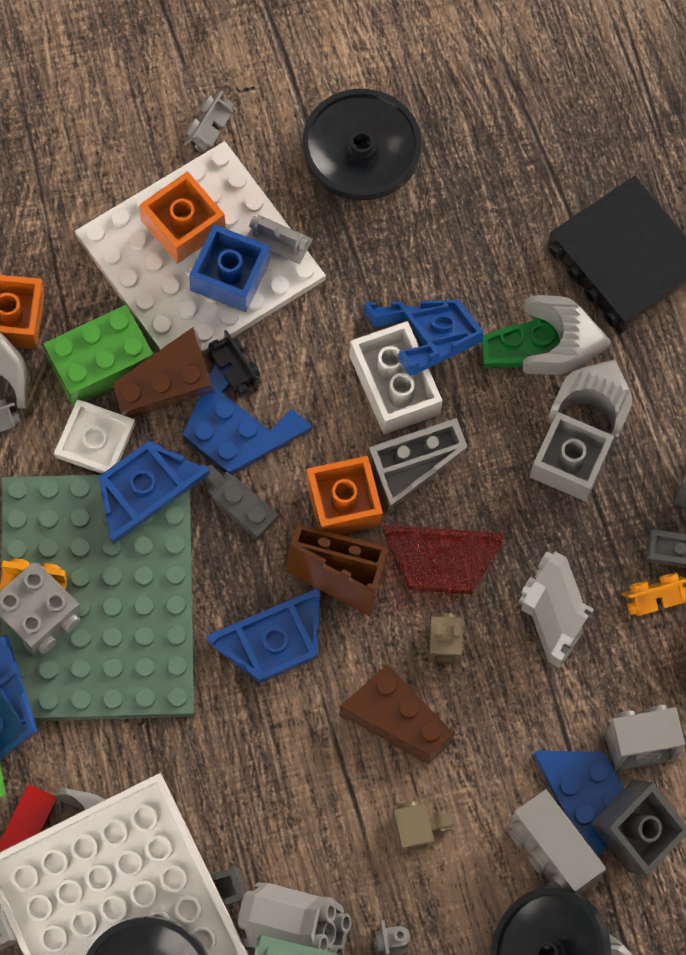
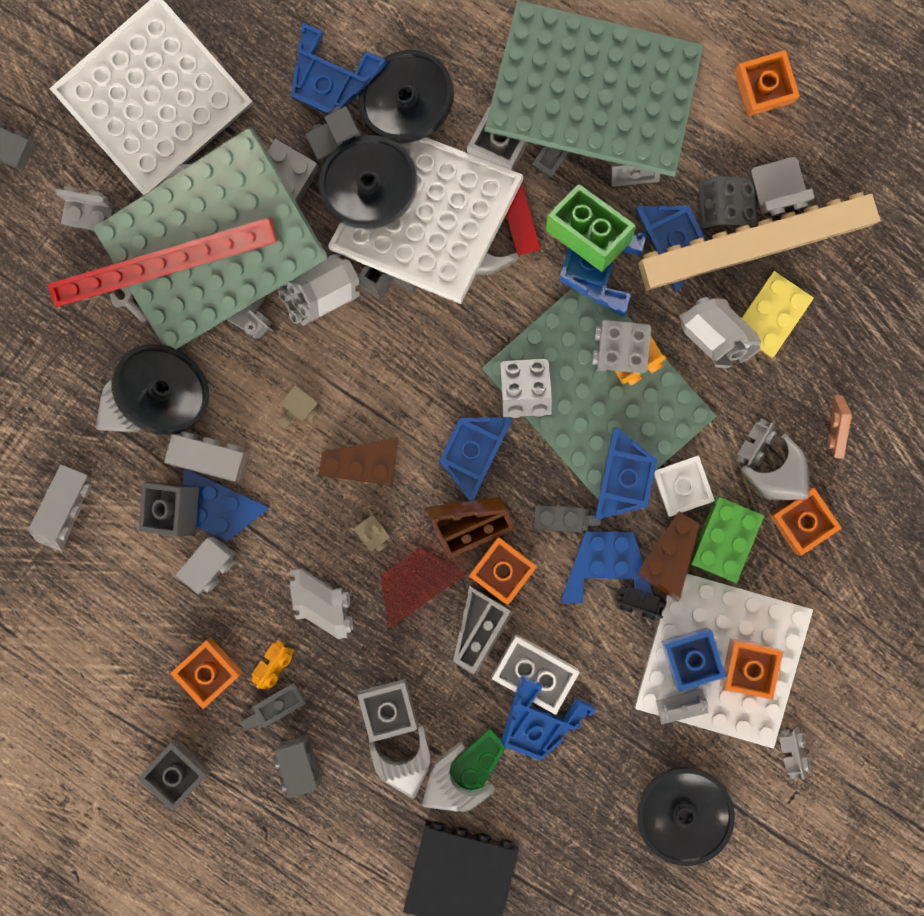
camera: 145 degrees right, 20 degrees up
(165, 651) = (526, 388): none -> light grey bracket

